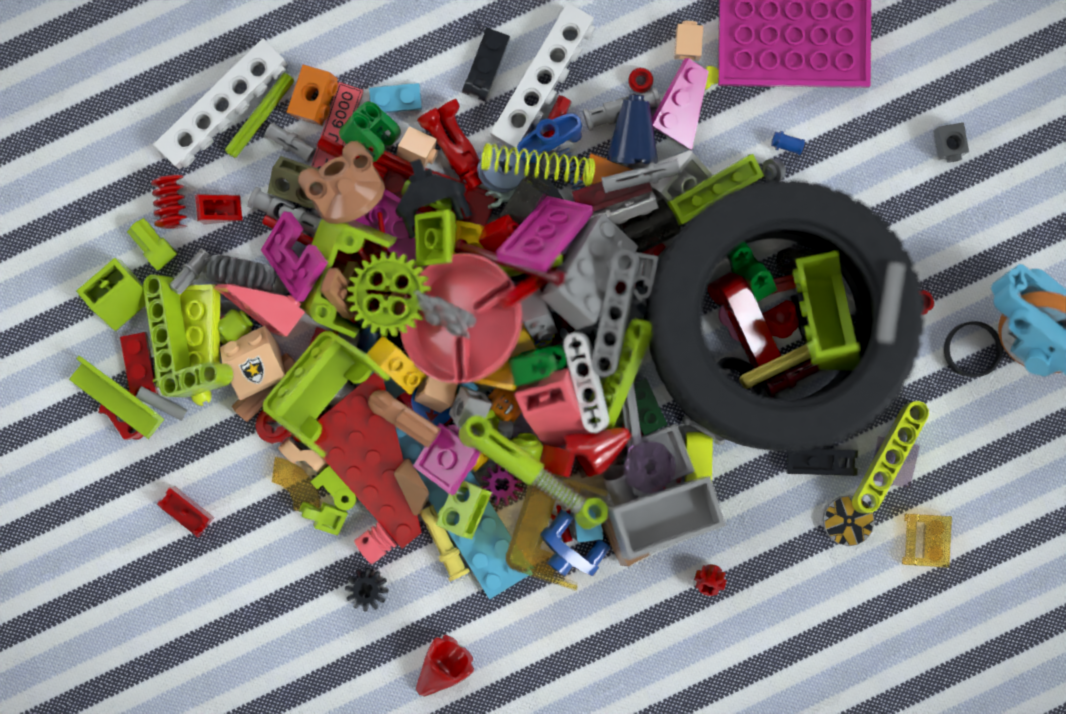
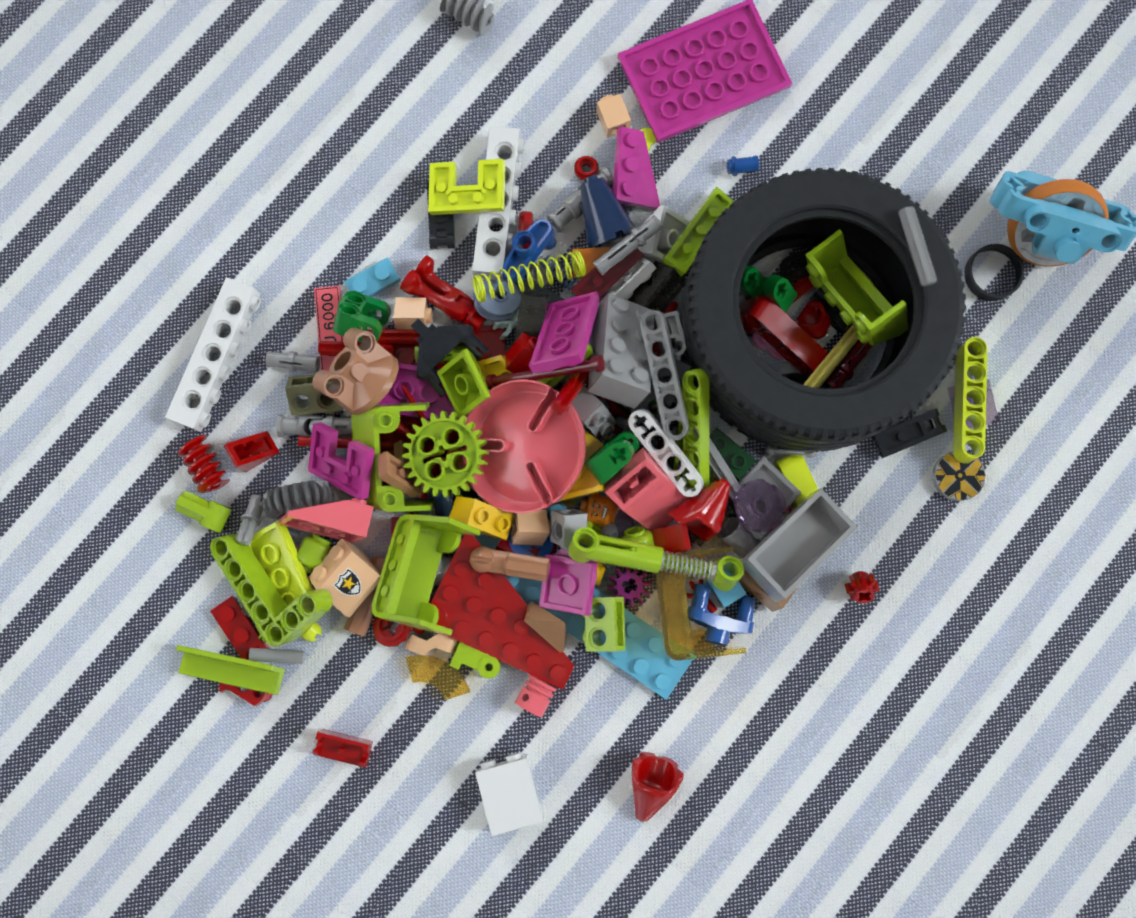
camera: 25 degrees left, 5 degrees down
(114, 294) = (186, 573): lime slope -> none
(259, 115) = (254, 350): lime axle -> none
(308, 82) = (286, 299): orange brick -> none
(313, 617) = (509, 794): none -> white brick
(327, 518) = (480, 693): lime plate -> none
(374, 593) = (537, 742): black gear -> none
(445, 314) = (507, 447): light grey hinge -> none
(448, 554) = (609, 674): light yellow pin -> none
(498, 55) = (453, 199): none -> neon yellow plate
(773, 169) = (739, 188): flat silver plate -> none
(935, 540) = (1046, 458): clear yellow plate -> none
(953, 131) = (889, 91): dark grey brick -> none

